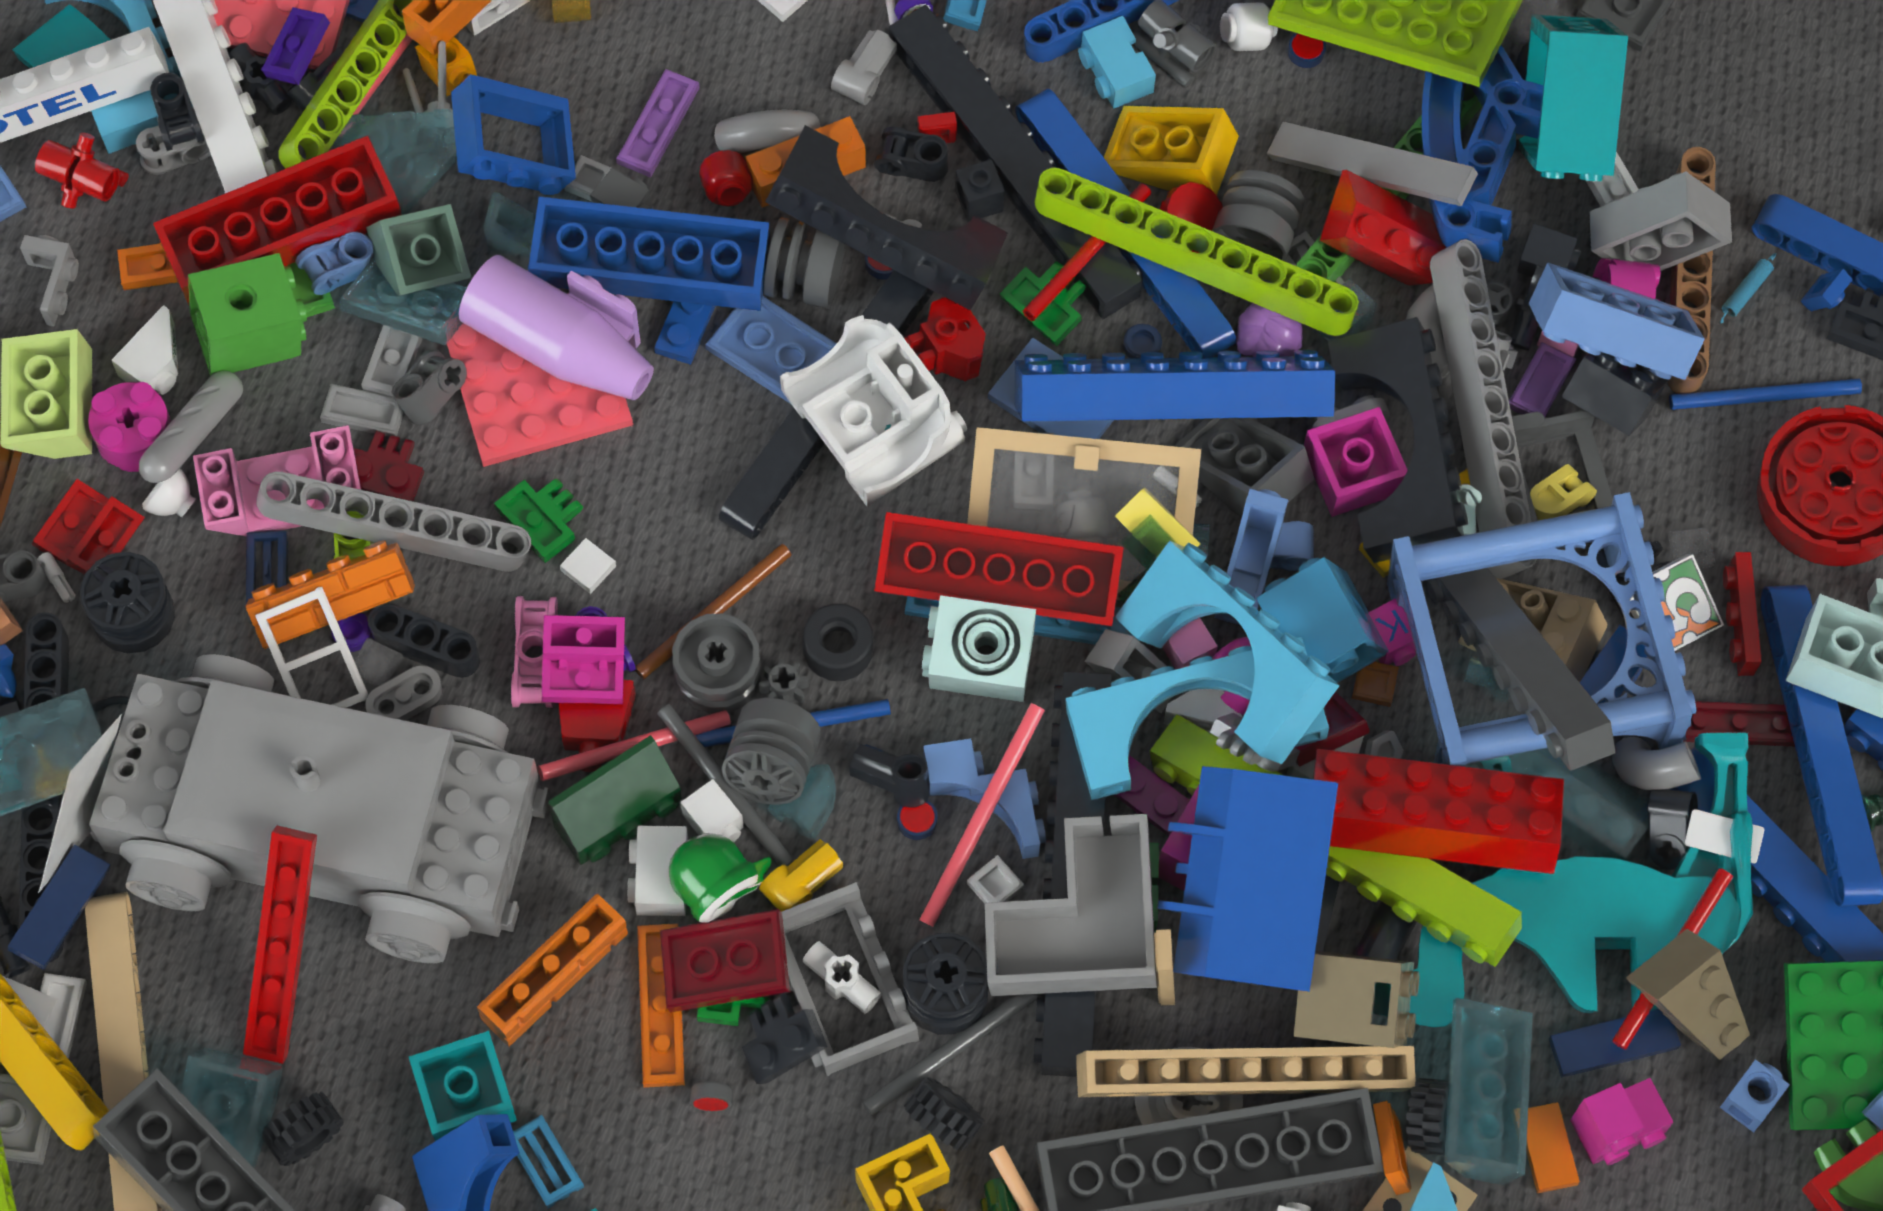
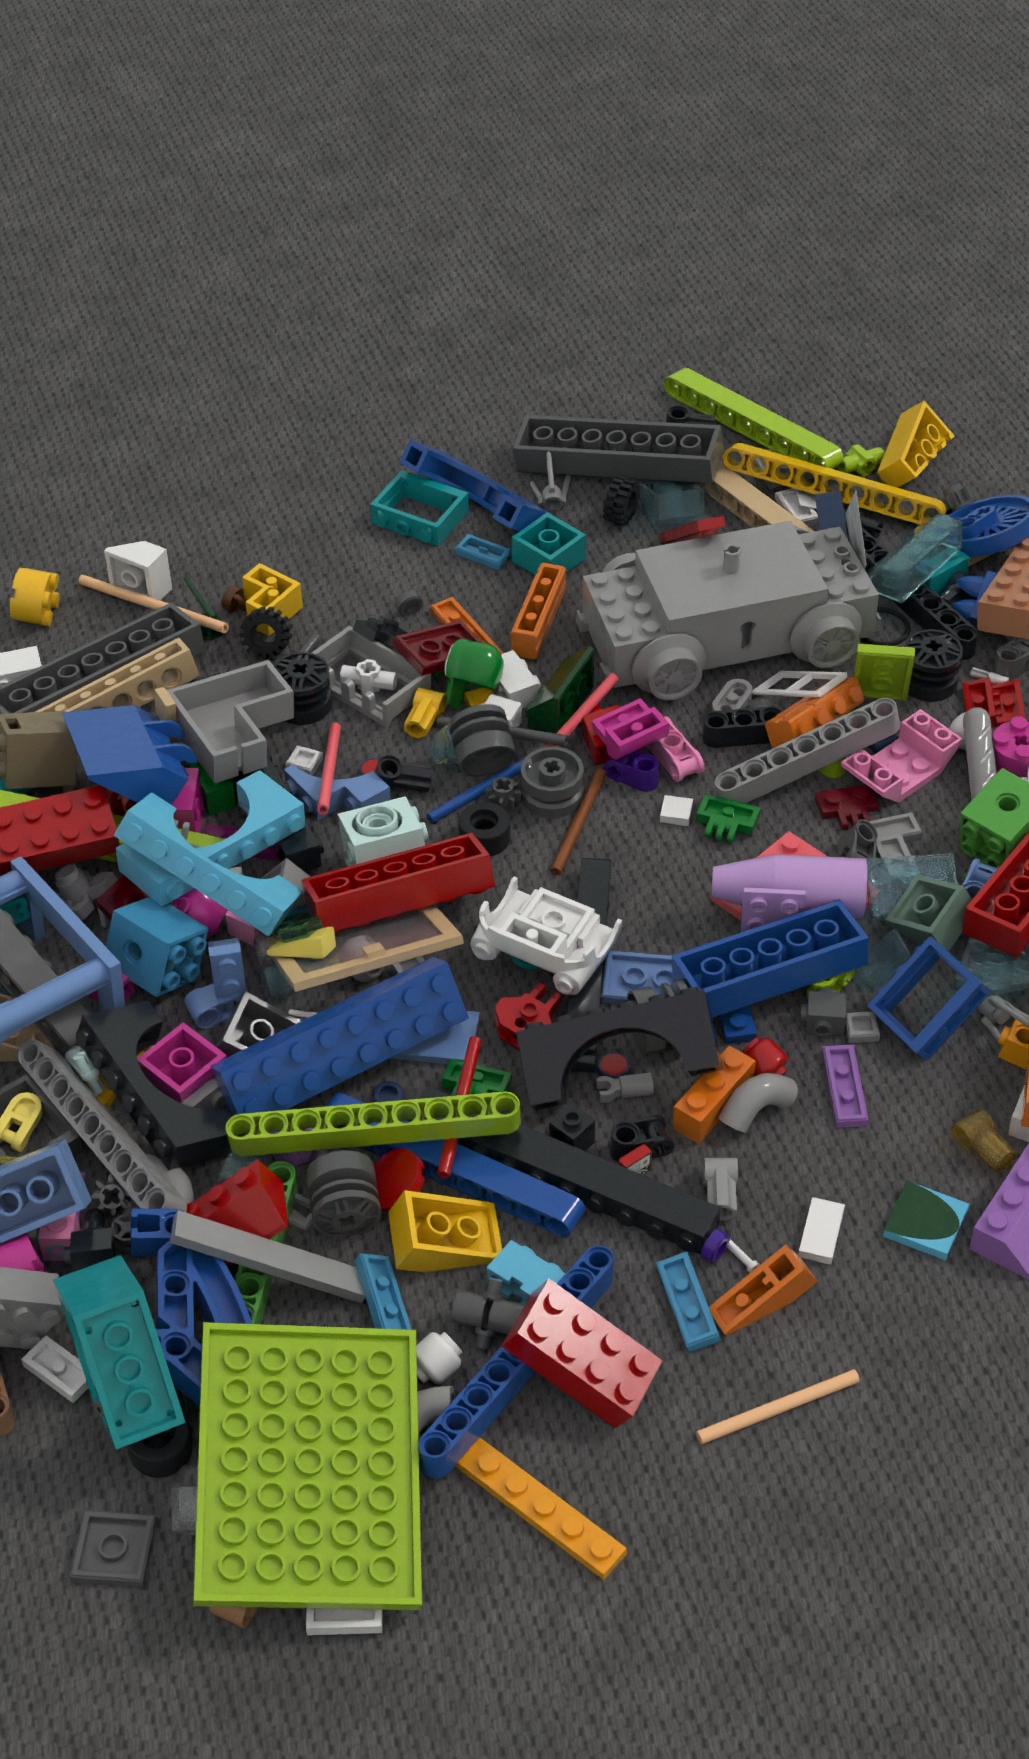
camera: 155 degrees right, 20 degrees down
(210, 593) = (884, 670): none -> lime tile
(1266, 112) = (382, 1292): none -> dark azure tile

